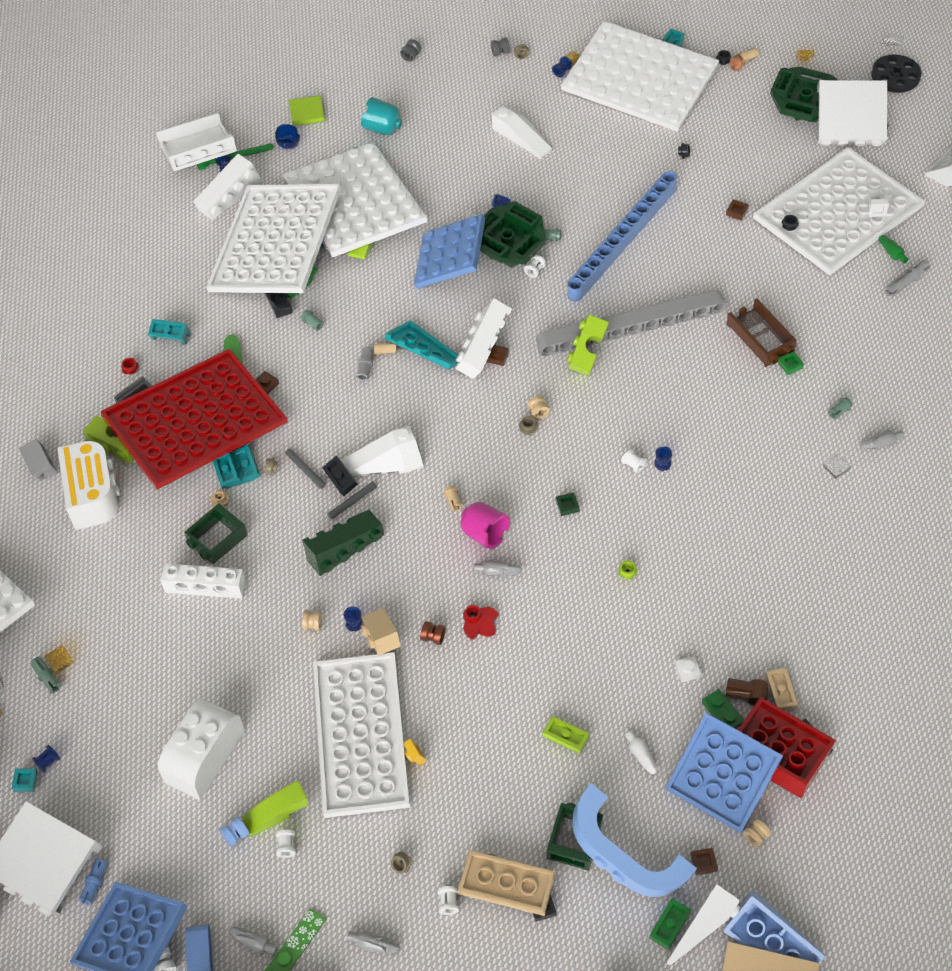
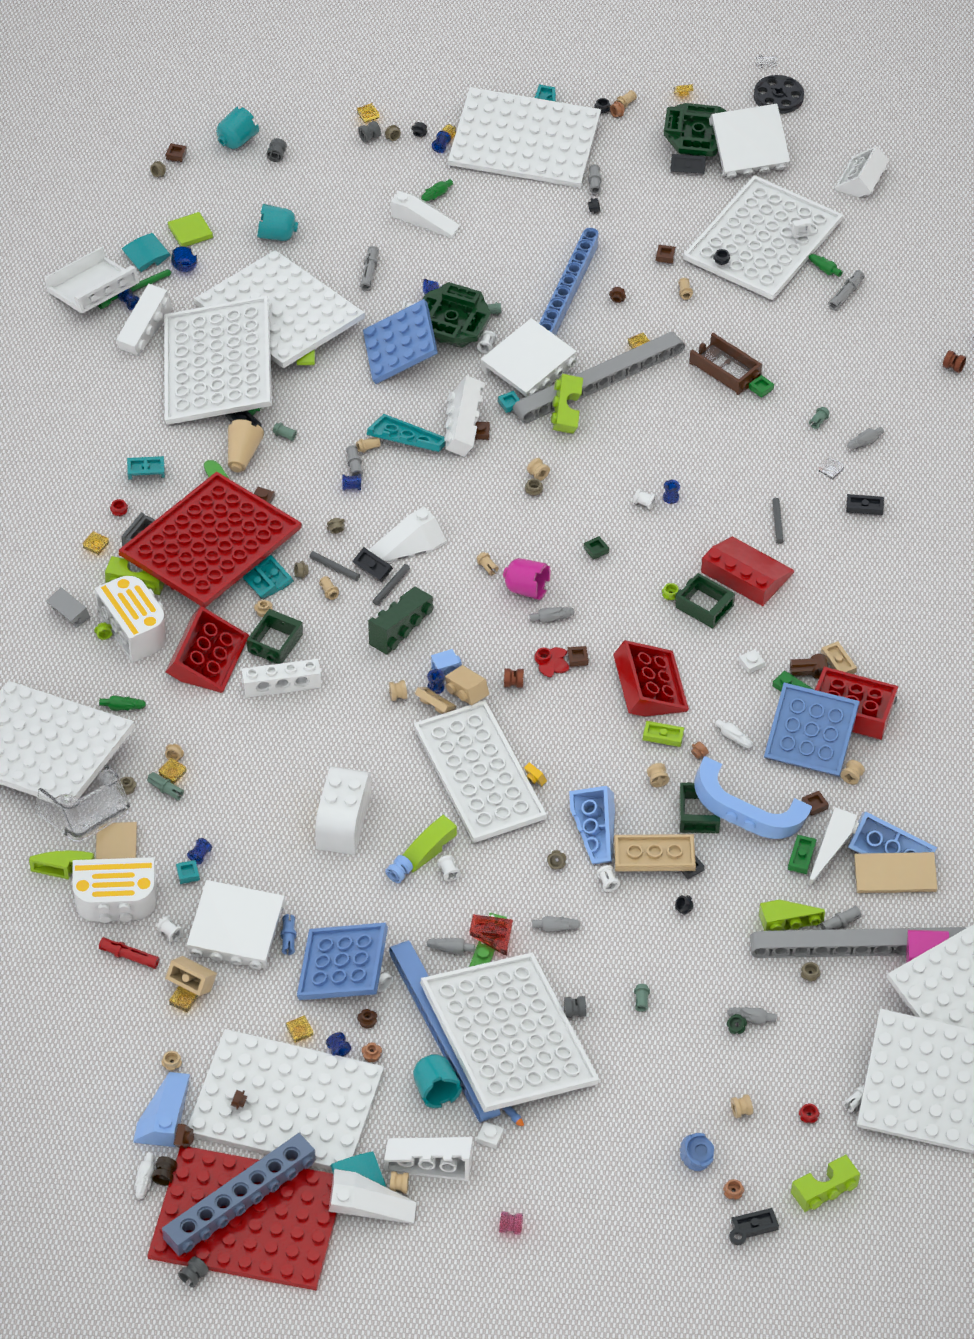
camera: 20 degrees left, 5 degrees down
(13, 667) = (131, 784): none -> dark tan plate
(45, 572) = (122, 703): none -> green piece
(58, 491) = (103, 631): none -> lime plate
(69, 638) = (174, 751): none -> tan plate
(92, 397) = (95, 543): none -> clear yellow plate
(145, 535) = (207, 651): none -> red slope
(258, 123) = (146, 251): none -> teal slope
(264, 326) = (242, 443): none -> tan cone
(290, 495) = (330, 590): none -> tan pin
(301, 50) = (158, 169): none -> dark tan plate
(301, 937) = (492, 931): none -> clear red wing
(321, 426) = (336, 525): none -> dark tan plate
(322, 38) = (176, 152): none -> reddish brown plate
(345, 640) = (430, 697): none -> tan plate
(353, 384) = (351, 482): none -> clear blue bush
(370, 600) = (445, 661): none -> light blue brick
(380, 25) = (236, 128): none -> teal cylinder
(454, 170) = (370, 263): none -> light grey pin
(459, 821) = (595, 819): none -> light blue wedge
(505, 30) = (368, 112): none -> clear yellow plate
(507, 622) = (577, 656): none -> reddish brown plate
(519, 955) = (684, 904): none -> black plate
(533, 330) = (507, 401): none -> teal plate
(541, 111) = (436, 190): none -> green piece
(543, 784) = (658, 775): none -> tan wheel
(546, 52) = (419, 129): none -> black plate
(568, 291) = (530, 358): none -> white panel
(572, 668) = (649, 680): none -> red slope
(597, 764) = (699, 750): none -> nougat plate
(668, 604) = (722, 595): none -> dark green window
(677, 242) = (617, 294): none -> reddish brown plate
(680, 292) = (637, 340): none -> clear yellow plate
(693, 125) = (594, 179): none -> light grey pin
(713, 561) = (745, 570): none -> red slope
(745, 248) = (685, 290): none -> tan pin
(764, 513) = (777, 520): none -> dark grey bar
(787, 125) = (688, 163): none -> black plate
(861, 514) = (865, 504): none -> black plate

